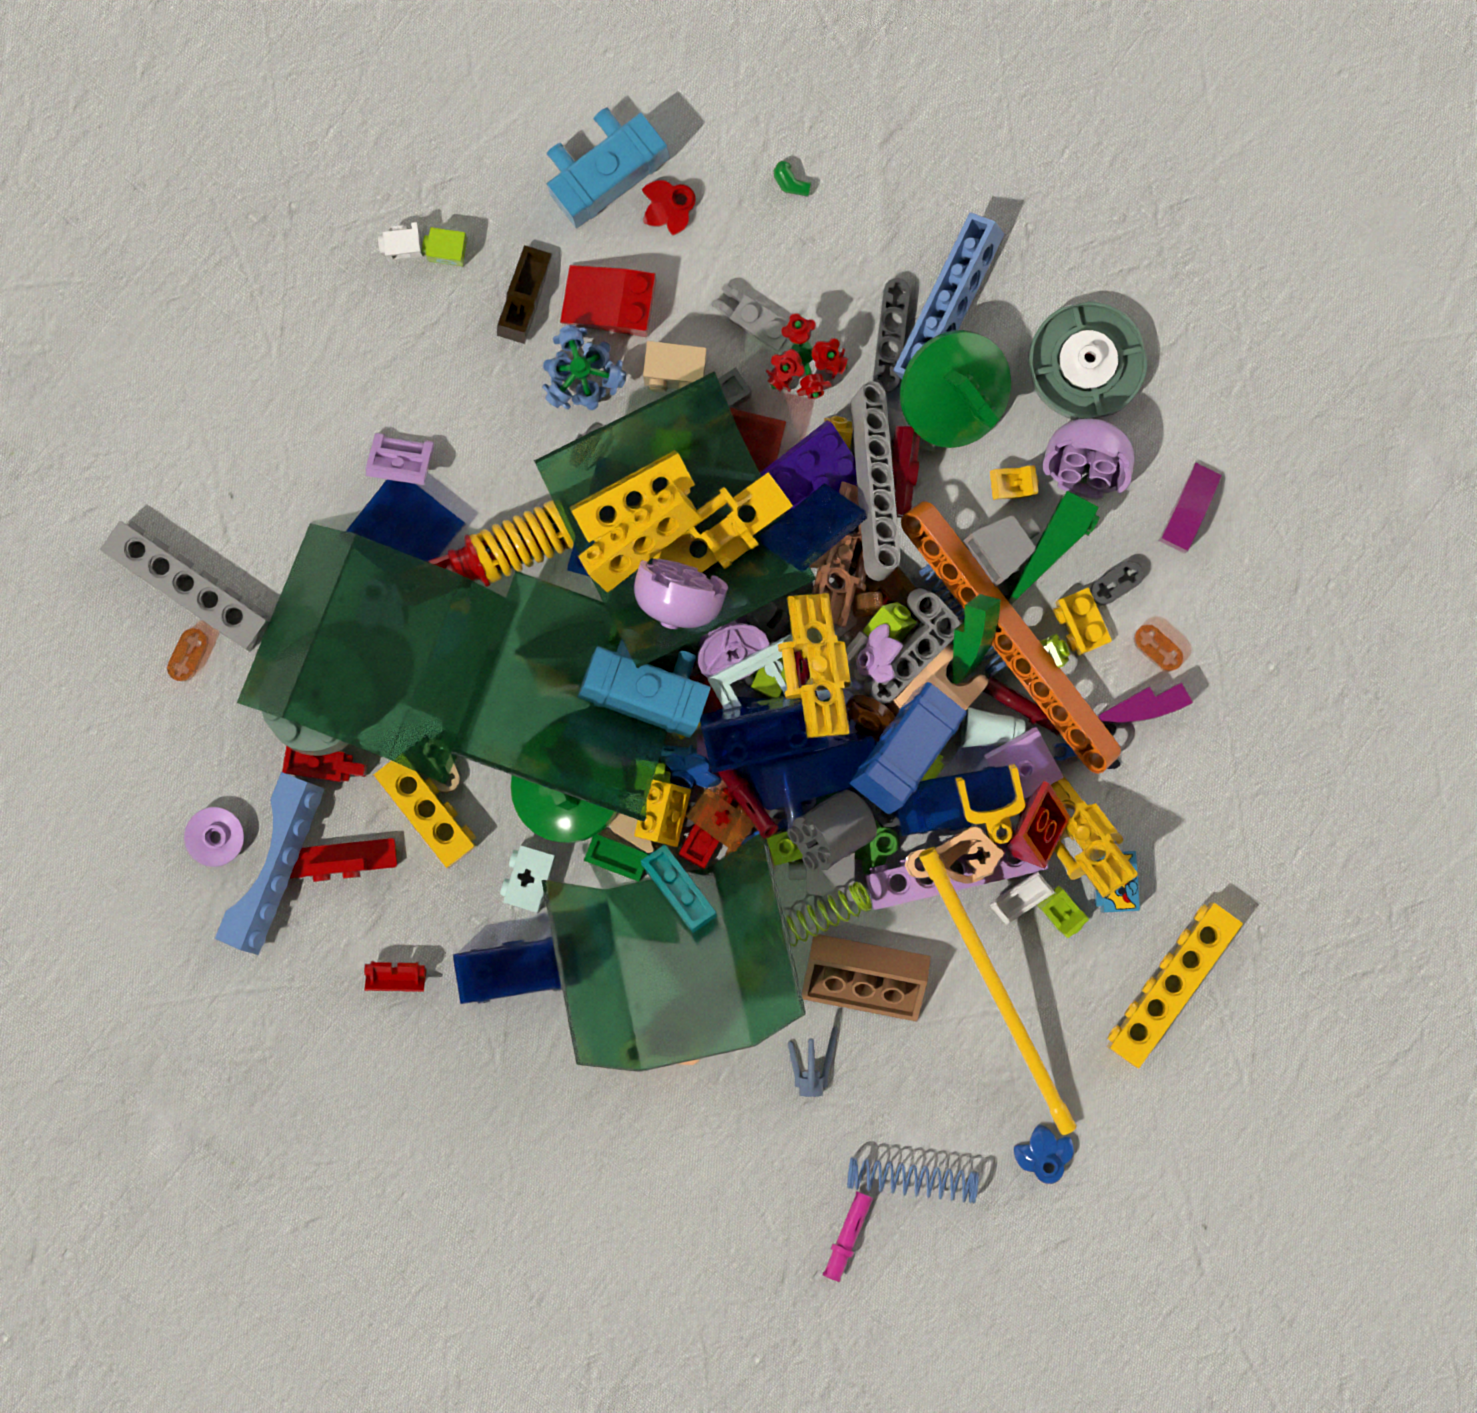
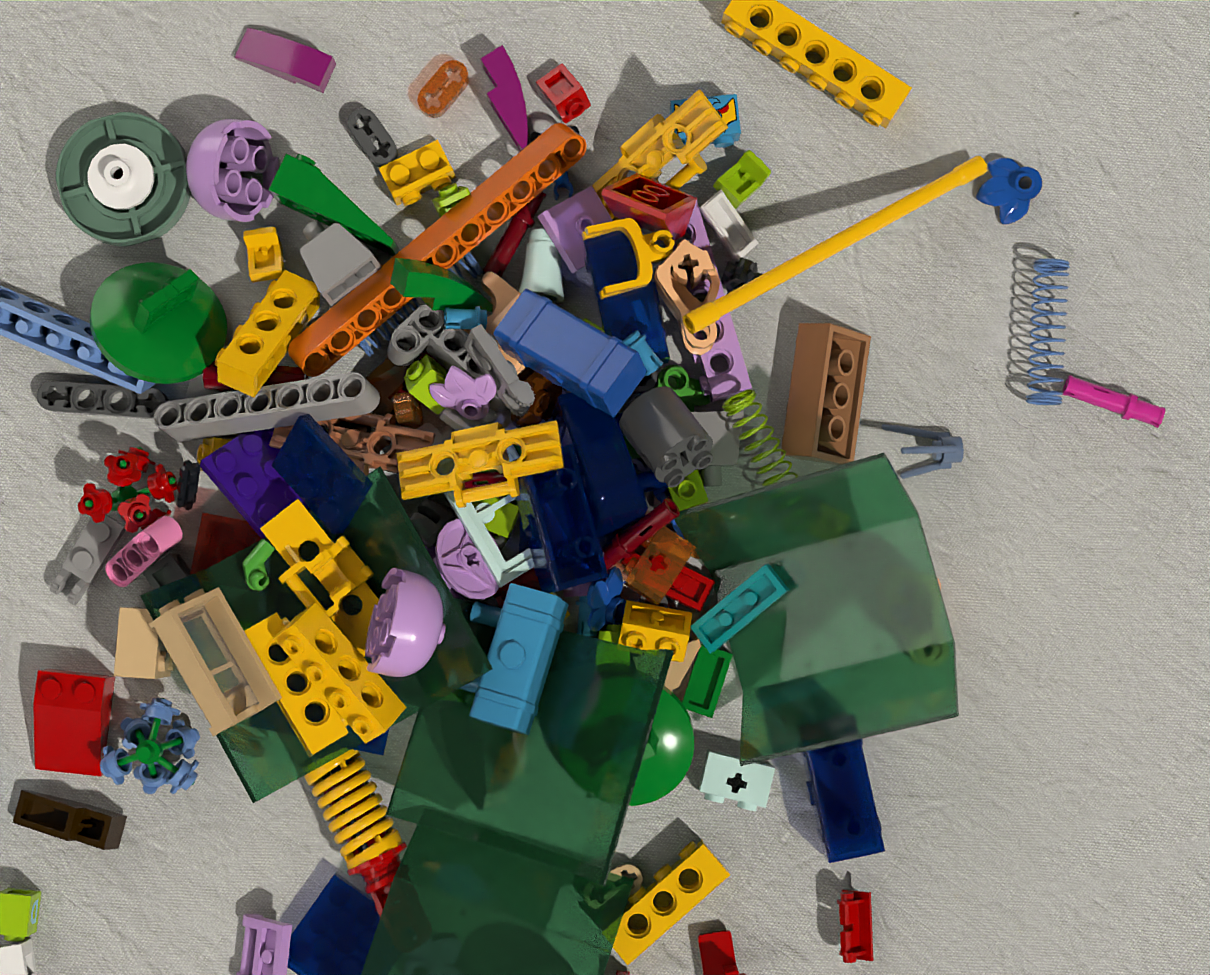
camera: 90 degrees left, 0 degrees up
(657, 433) = (215, 658): none -> tan door
(735, 466) = (254, 566): none -> bright green arm
(754, 369) = (144, 551): none -> bright pink beam
(811, 408) = (187, 485): none -> black axle
(906, 467) = (267, 333): none -> yellow brick
(912, 807) = (650, 359): none -> dark azure pin
(913, 674) = (485, 353): none -> light grey hinge
(944, 658) = (464, 318): none -> dark azure pin
(976, 906) = (739, 273): none -> black gear
(1149, 756) = (564, 93): none -> red bracket

